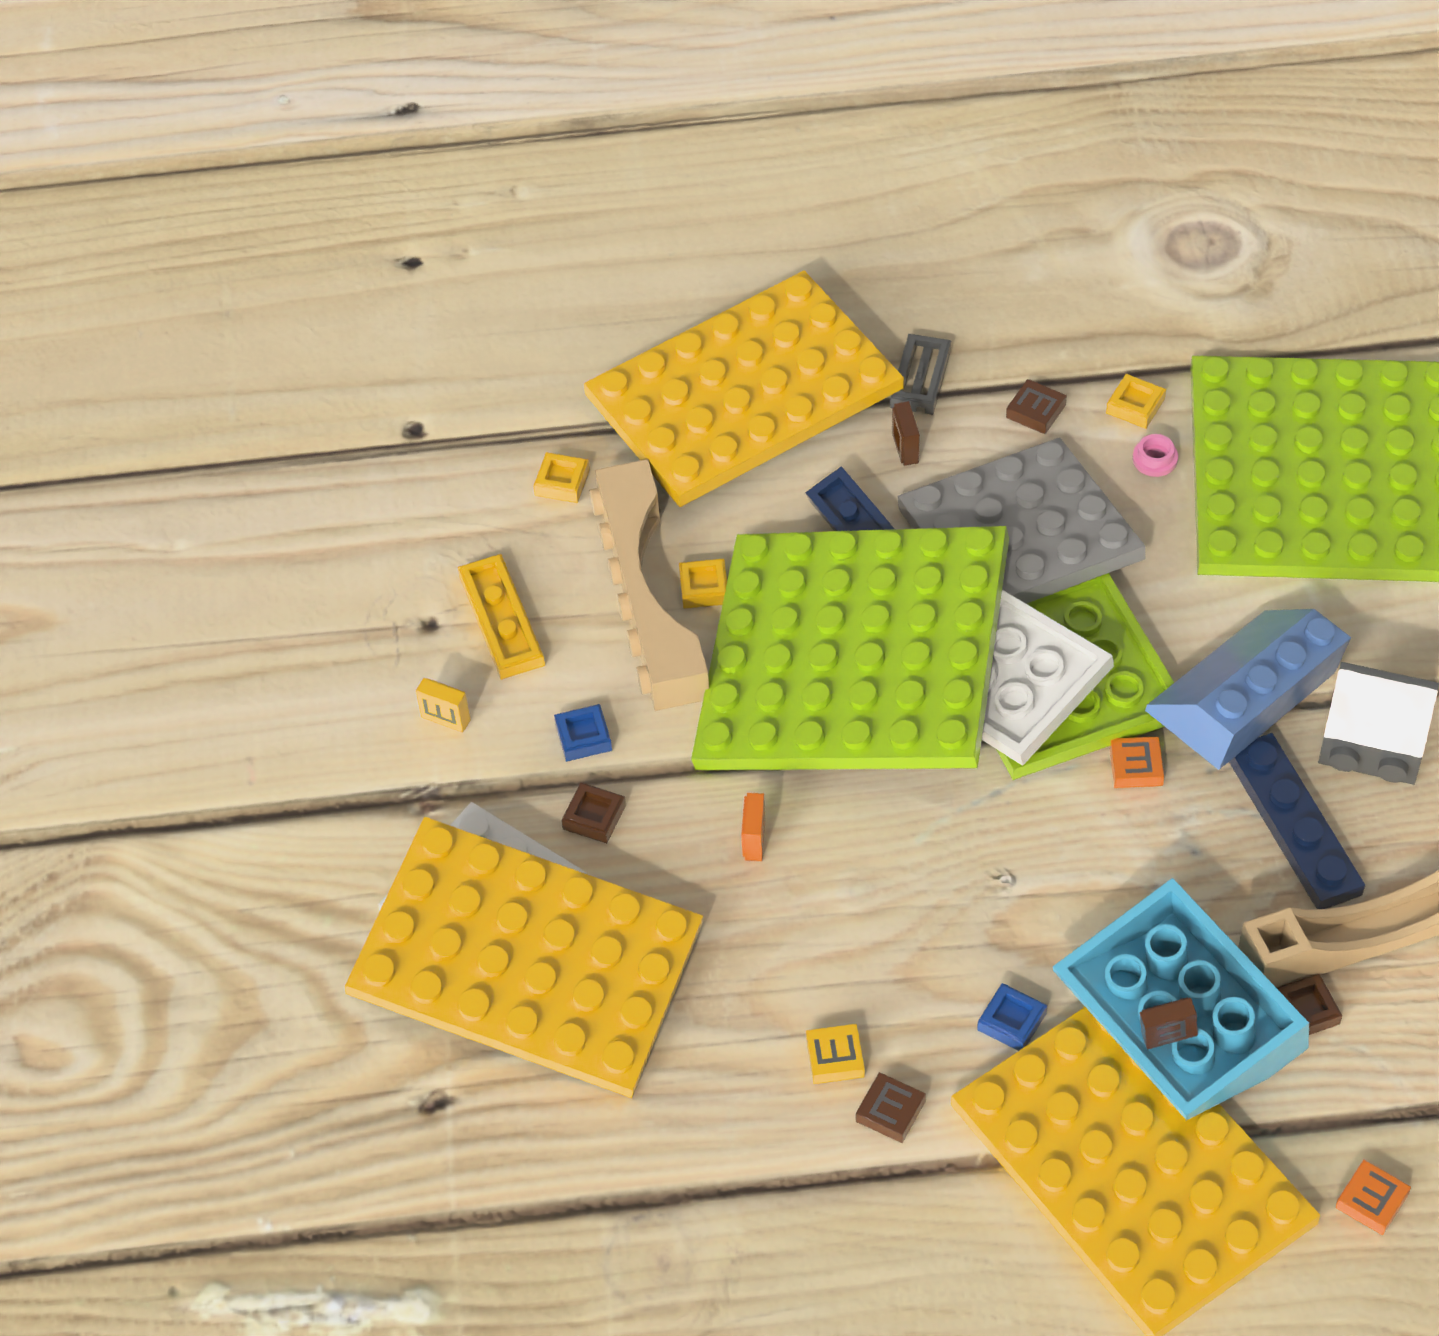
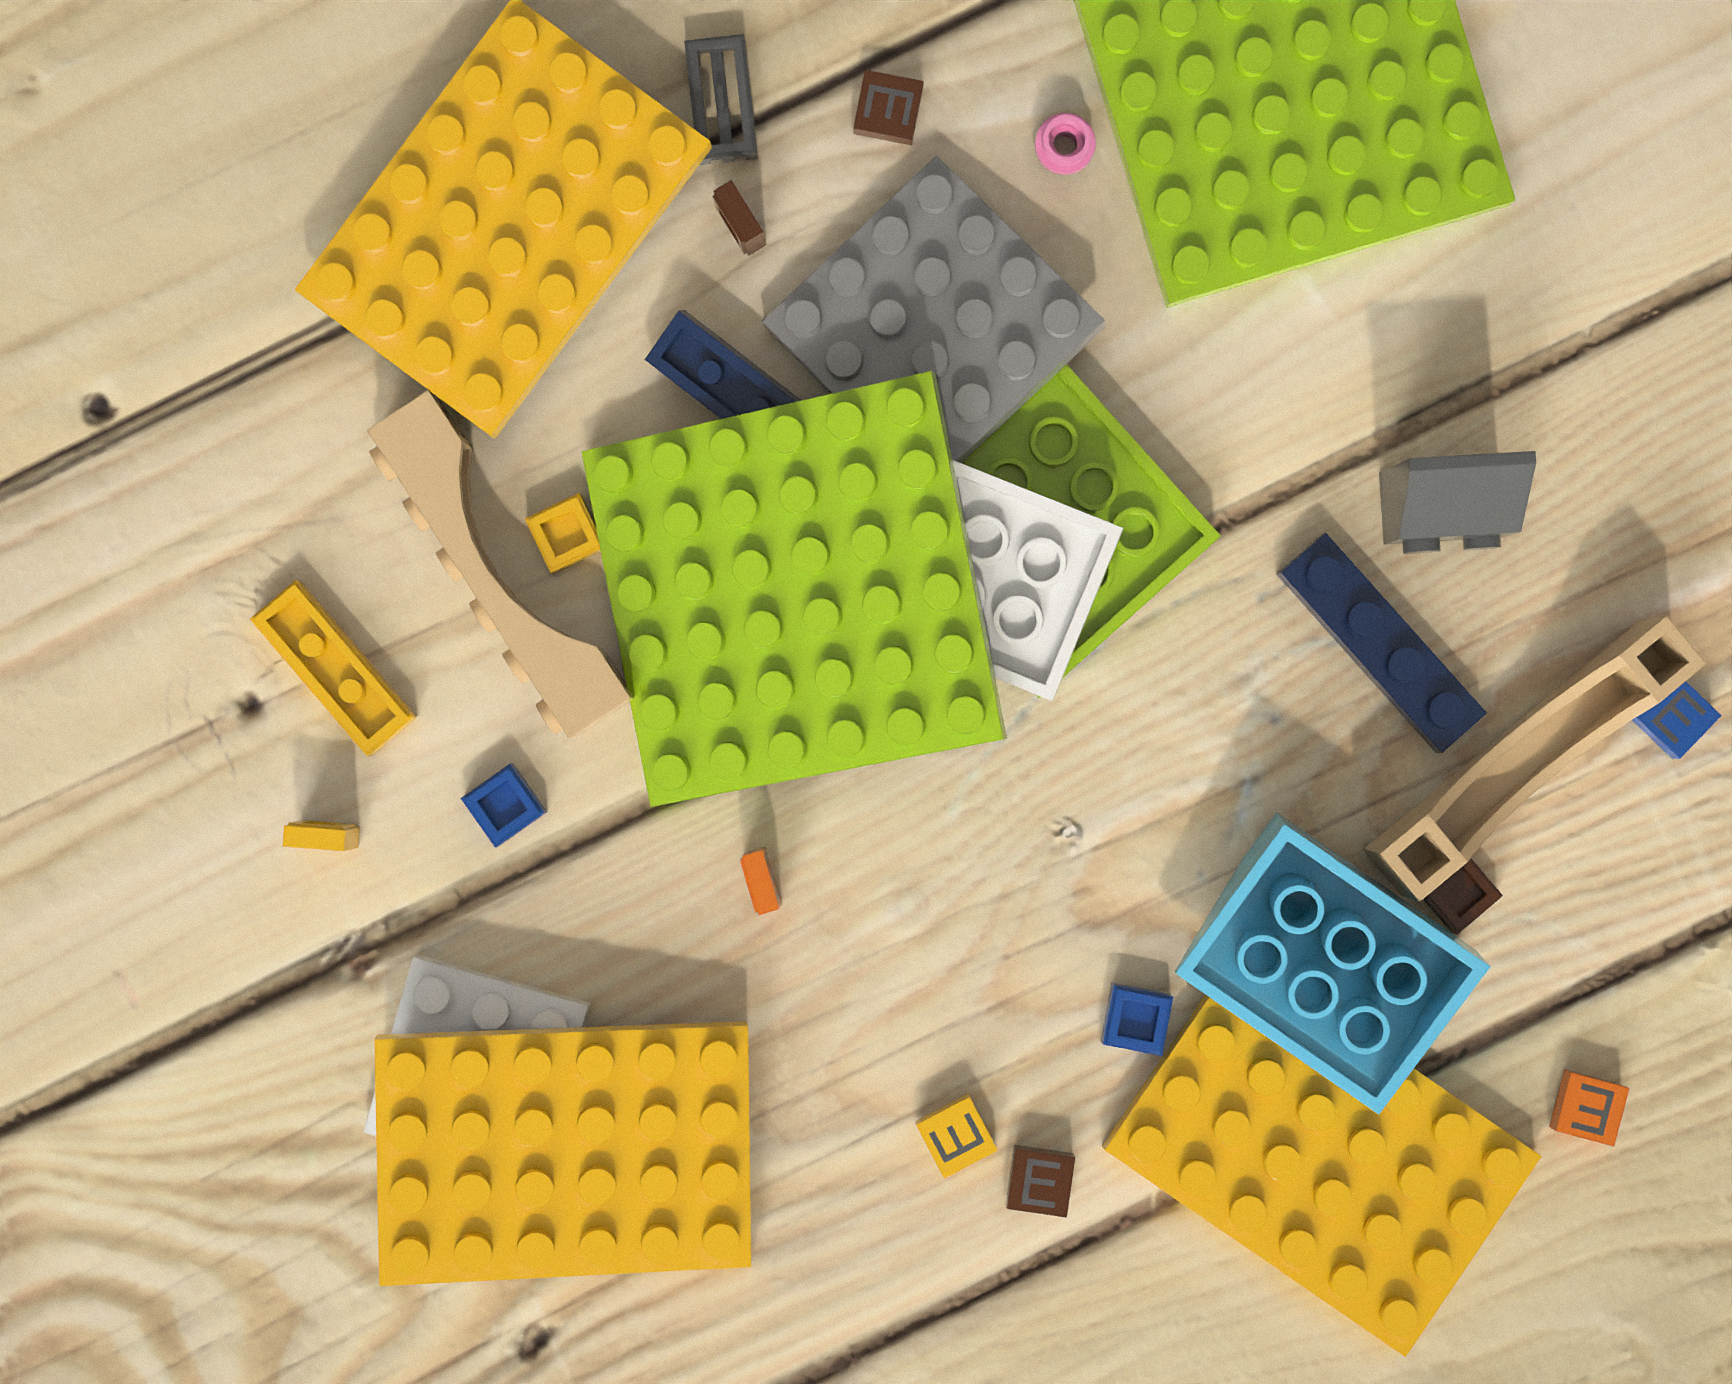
camera: 25 degrees left, 35 degrees up
(561, 477) = (321, 427): yellow tile -> none
(593, 812) = (561, 913): reddish brown tile -> none
(1136, 401) = (1012, 54): yellow tile -> none
(1136, 762) = (1176, 624): orange tile -> none
(1168, 1023) = (1337, 1030): reddish brown tile -> none
(1250, 682) = (1285, 478): medium blue slope -> none

